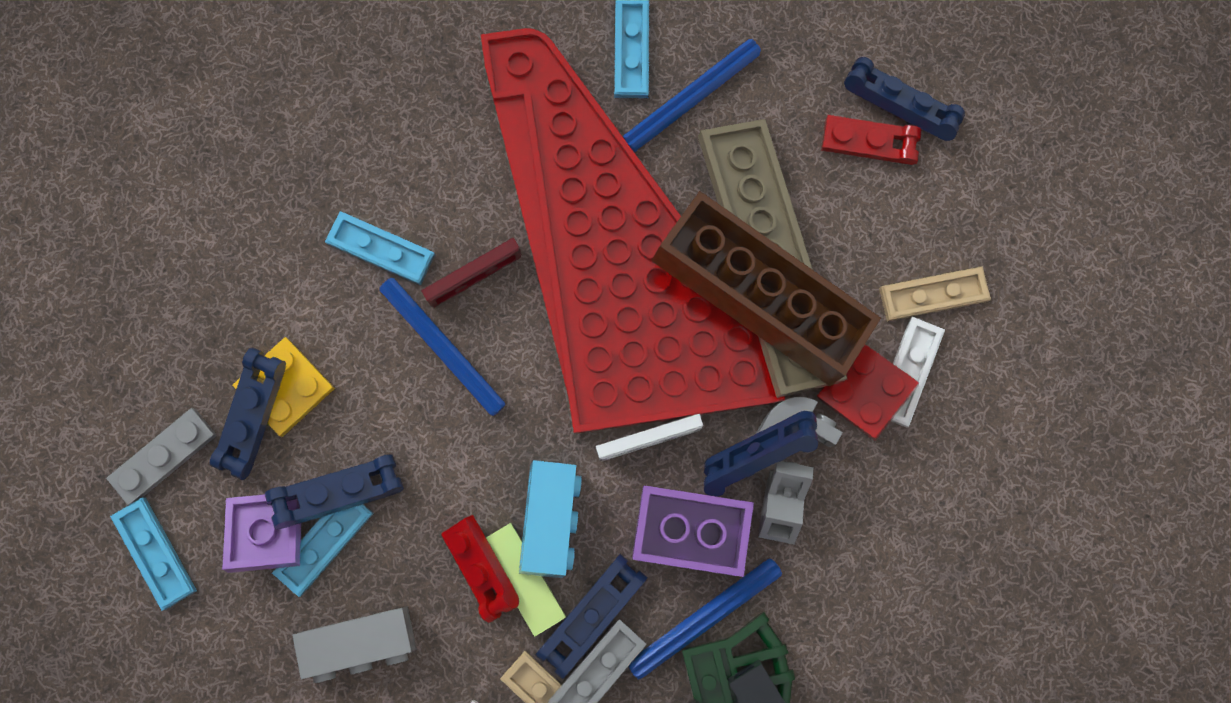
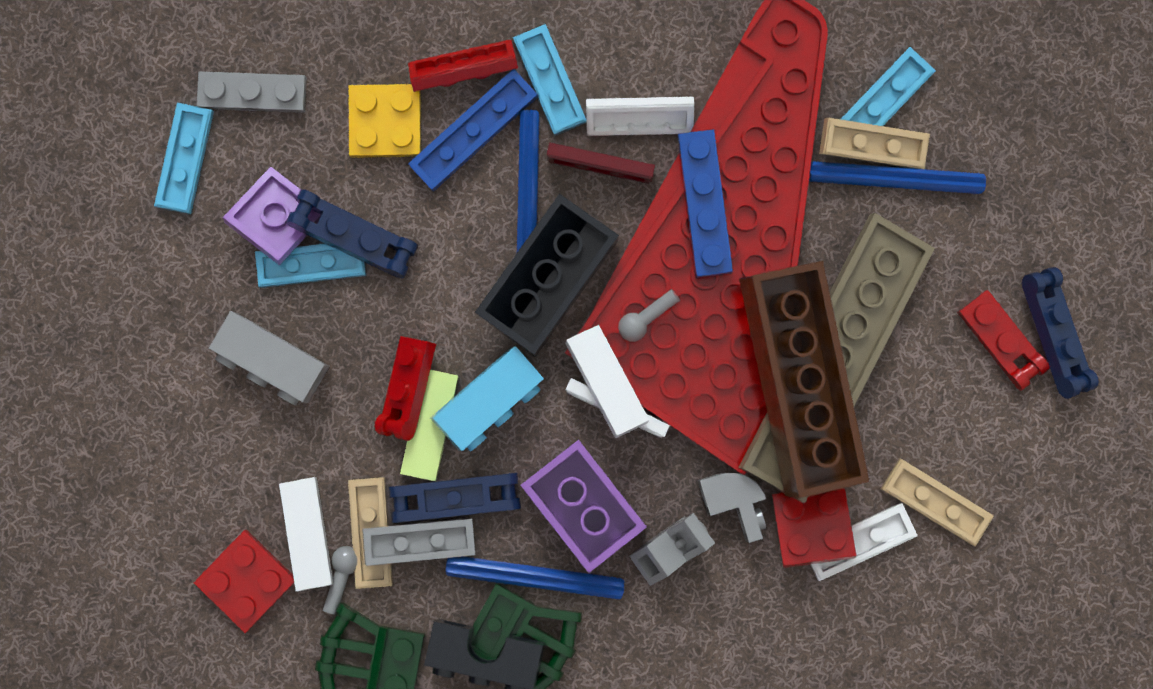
camera: 50 degrees right, 5 degrees up
(248, 413) = (342, 118): dark blue plate -> none
(304, 295) = (462, 65): none -> red plate
(356, 334) = (473, 130): none -> blue plate
(469, 214) = (639, 116): none -> white plate
(508, 387) = (547, 275): none -> black slope
(575, 232) = (705, 203): none -> blue plate
(606, 367) = (634, 326): none -> light grey bar
(624, 424) = (607, 381): none -> white tile
(654, 85) = (874, 143): none -> tan tile
(760, 451) = (687, 495): dark blue plate -> none

